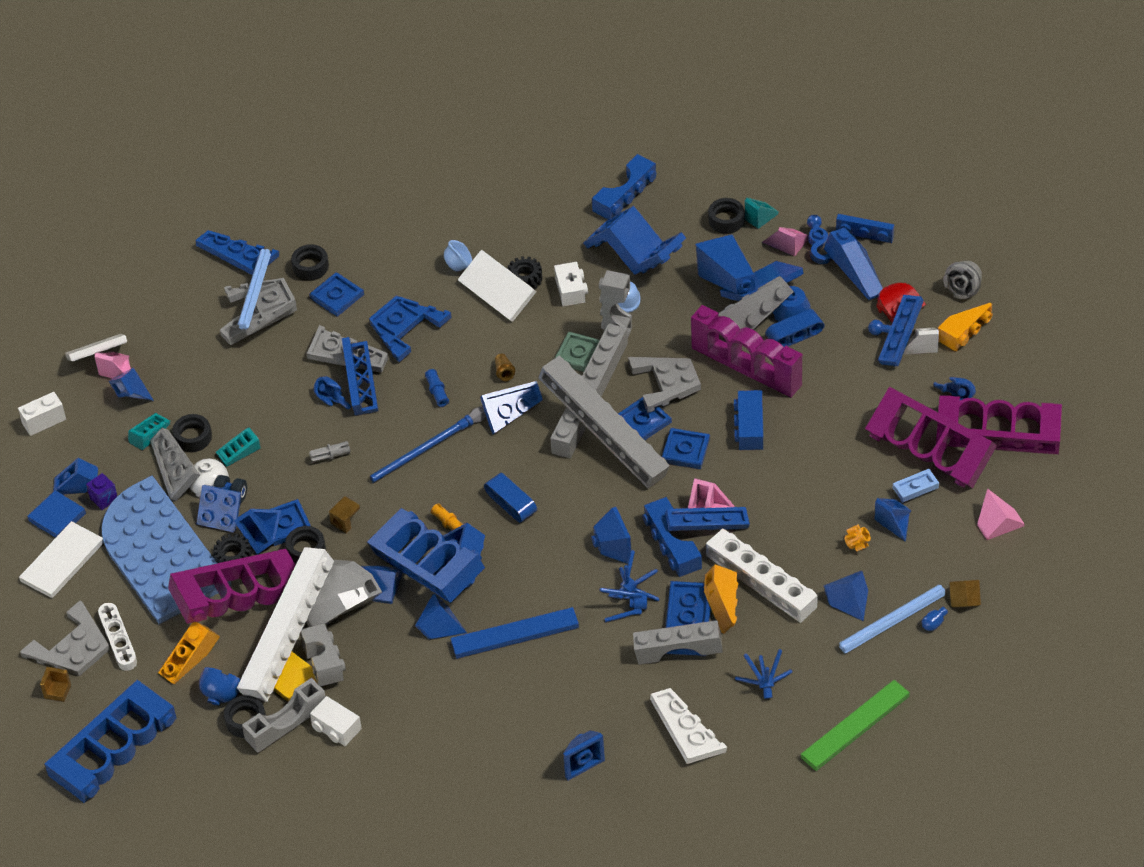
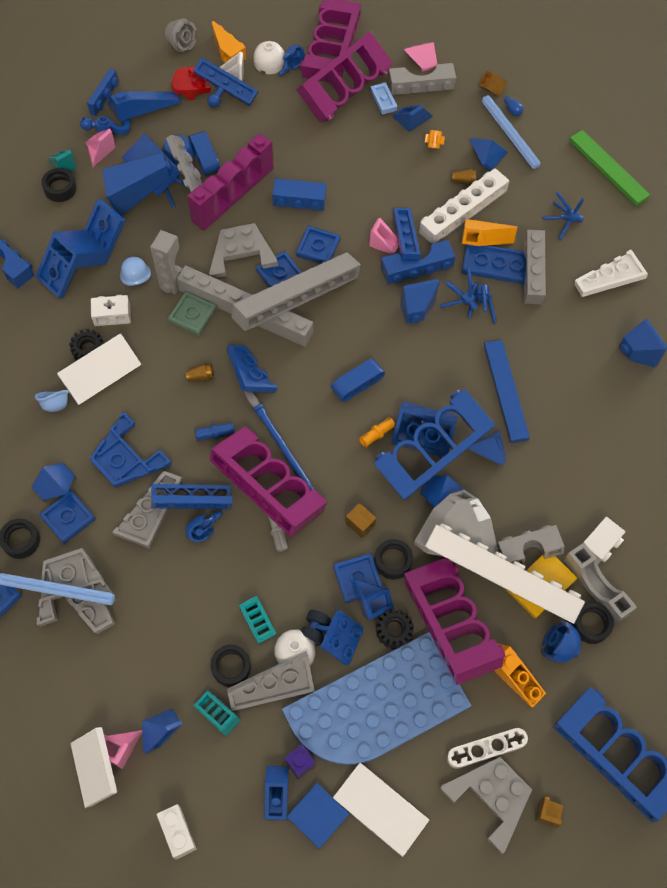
camera: 90 degrees left, 15 degrees up
(354, 467) = (246, 443): none -> magenta fence
(373, 276) = (53, 481): none -> blue slope
(808, 574) = (465, 176): none -> pearl gold cone
(955, 364) = (269, 57): none -> white cylinder
(961, 539) = (404, 82): none -> light grey arch

